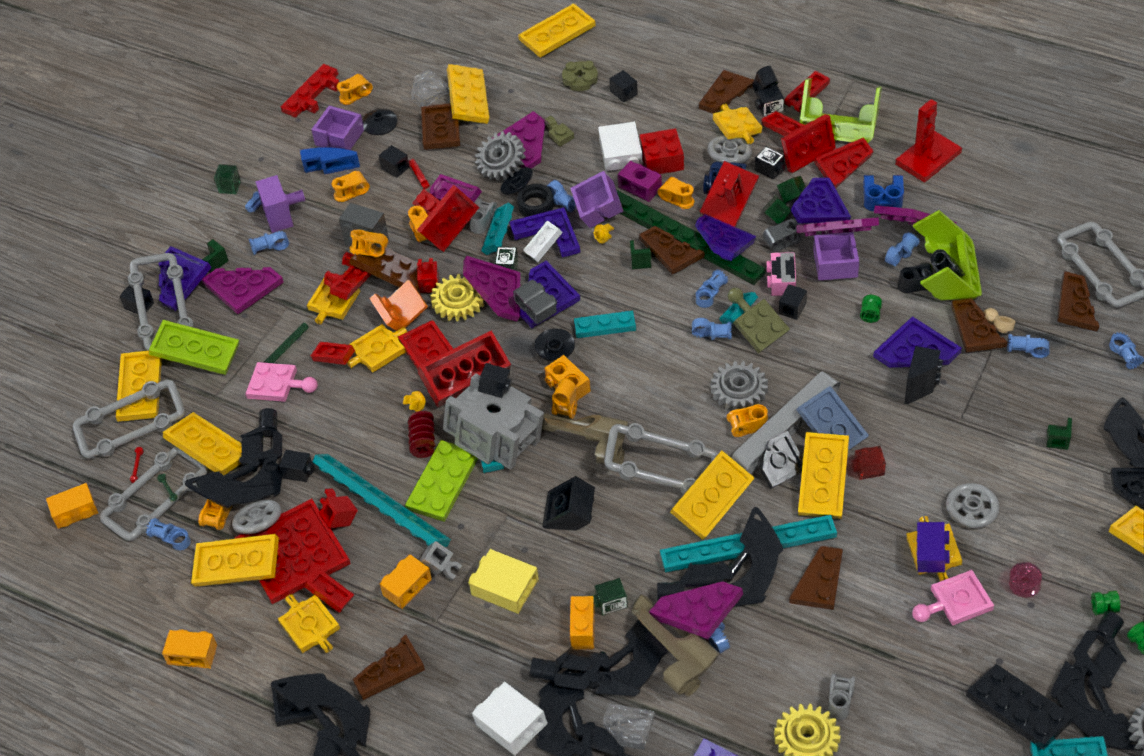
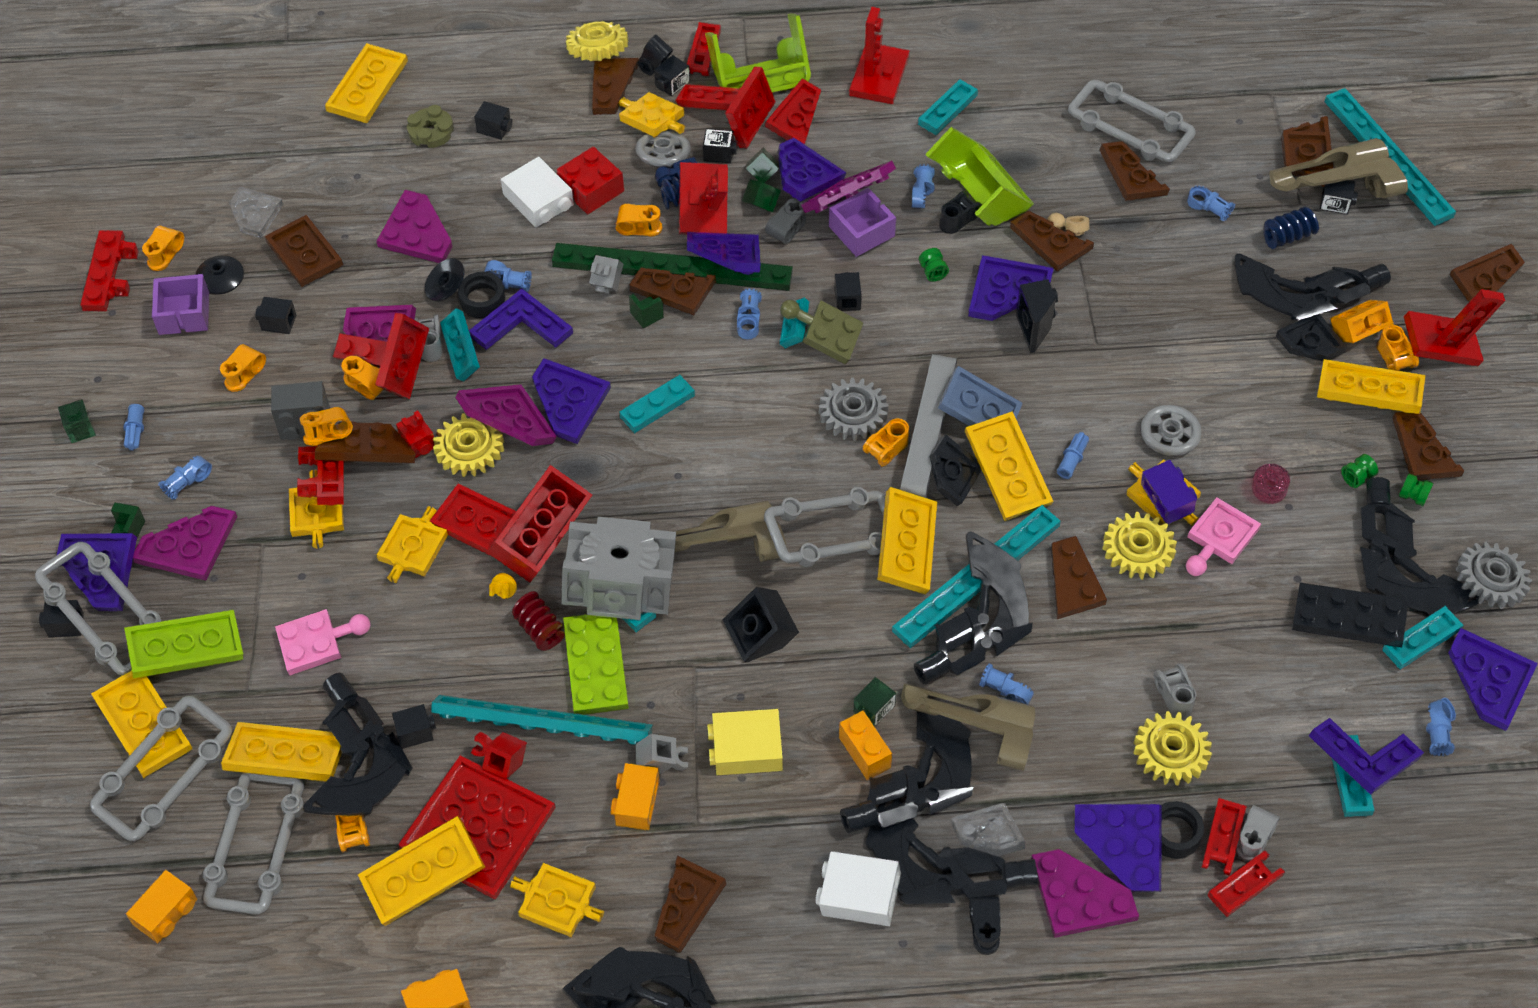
camera: 35 degrees left, 5 degrees up
(139, 451) = (197, 801): red hinge -> none
(162, 478) = (251, 819): clear green hinge -> none
(168, 533) = (310, 880): medium blue connector -> none
(256, 517) = (408, 808): light grey plate -> none
(276, 203) = (167, 425): medium lavender brick -> none
(287, 343) = (294, 589): clear green bar -> none
(329, 159) = (191, 345): blue slope -> none
(329, 590) = (557, 850): red plate -> none
(332, 353) = (363, 574): red plate -> none
(400, 307) = (410, 482): bracket -> none
(420, 176) = (315, 318): red wheel -> none
(467, 94) = (311, 199): yellow plate -> none
(494, 380) = (602, 520): black brick -> none
(500, 156) = (395, 248): light grey gear -> none
(507, 257) = (496, 373): brick -> none
(535, 301) = (568, 410): dark grey brick -> none
(542, 241) = (524, 337): white plate -> none
(554, 344) = (619, 443): black dish -> none
(558, 133) = (453, 204): olive plate -> none
(564, 399) = (678, 506): light orange piece -> none
(565, 369) = (662, 480): light orange brick -> none
(596, 199) = (558, 263): medium lavender piece -> none
(601, 233) = (585, 300): yellow plate -> none
(626, 220) = (605, 274): none -> light grey brick
(639, 181) = (587, 223): magenta brick -> none
(698, 609) = (979, 670): magenta plate -> none
(711, 329) = (771, 361): medium blue connector -> none
(732, 57) = (597, 41): none -> light yellow gear
(782, 272) = (815, 264): brick -> none
(869, 462) = (1042, 431): clear red brick -> none
(876, 195) = (857, 138): blue piece -> none
(882, 490) = (1072, 455): none -> medium blue axle
(900, 214) = (905, 148): magenta plate -> none
(901, 576) = (1156, 547): none -> light yellow gear
(941, 260) = (984, 188): black piece -> none
(963, 199) = (948, 107): none -> teal plate
(1029, 345) = (1125, 236): medium blue connector -> none
(1059, 436) = (1207, 319): dark green panel -> none

